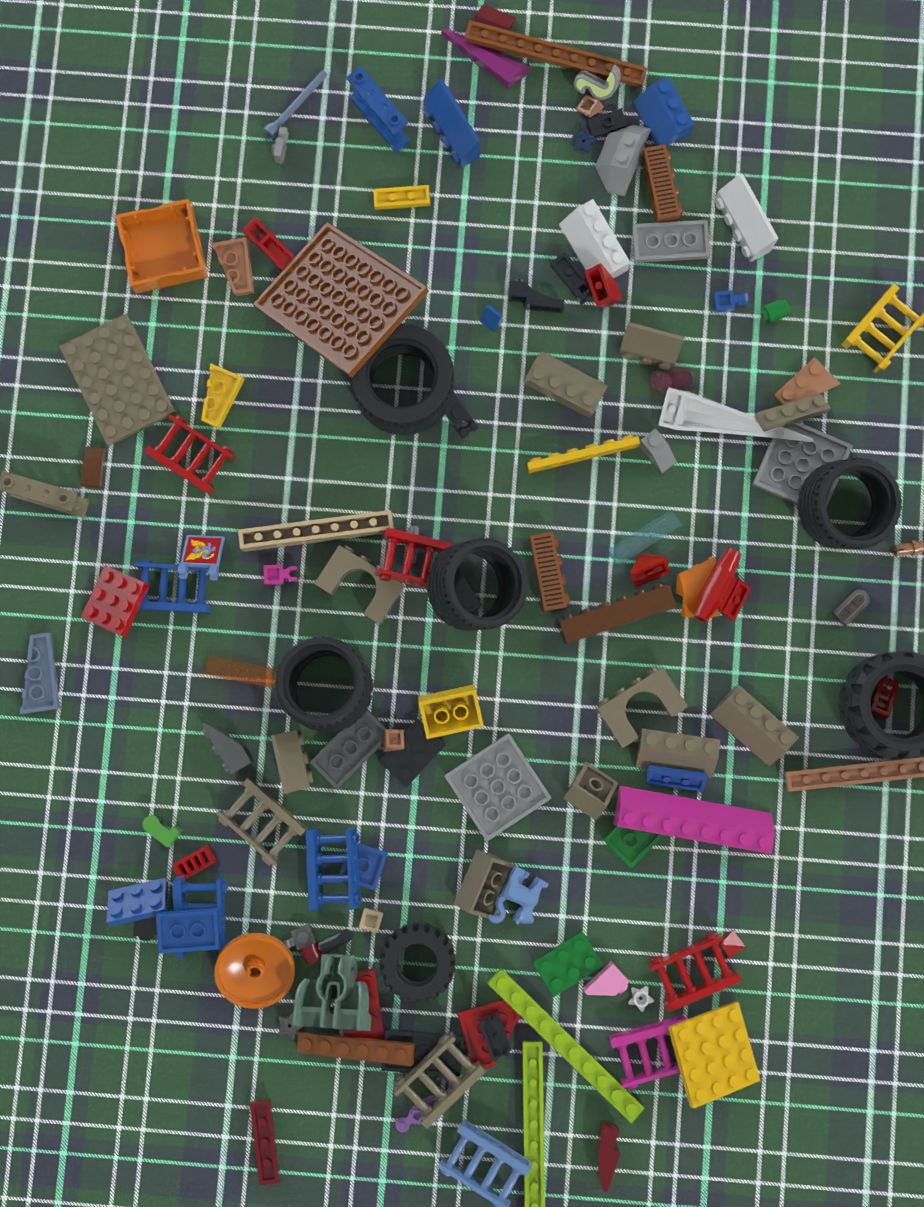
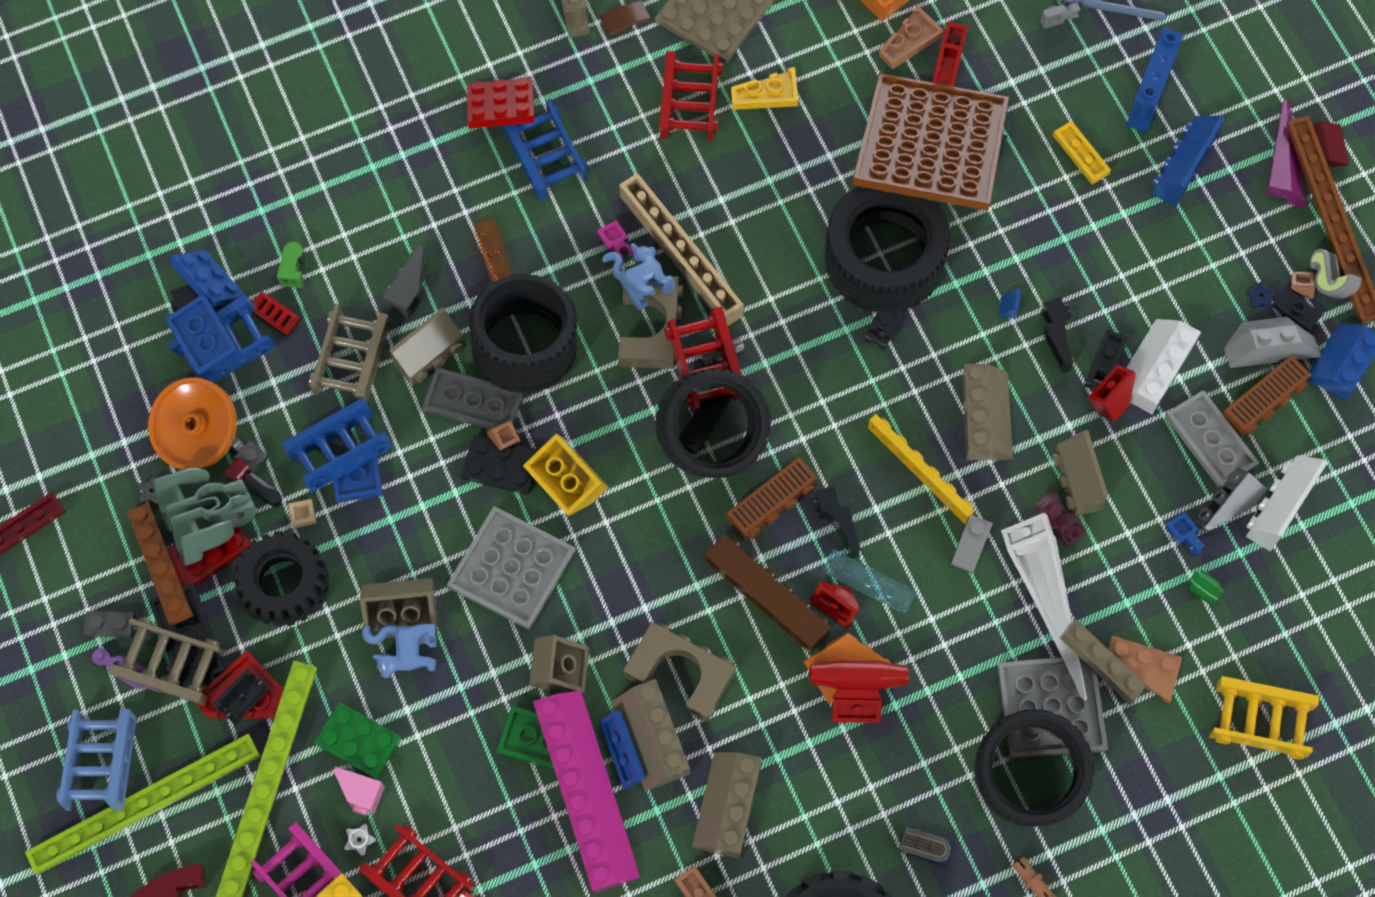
camera: 60 degrees right, 15 degrees down
(41, 678) = (381, 83): sand blue wing -> none
(201, 552) = (594, 155): flag -> none
(326, 572) = (638, 280): none -> medium blue animal
(379, 1106) = (108, 624): none -> dark grey plate
(574, 535) = (840, 518): none -> black slope
(724, 255) = (1235, 497): none -> dark grey slope

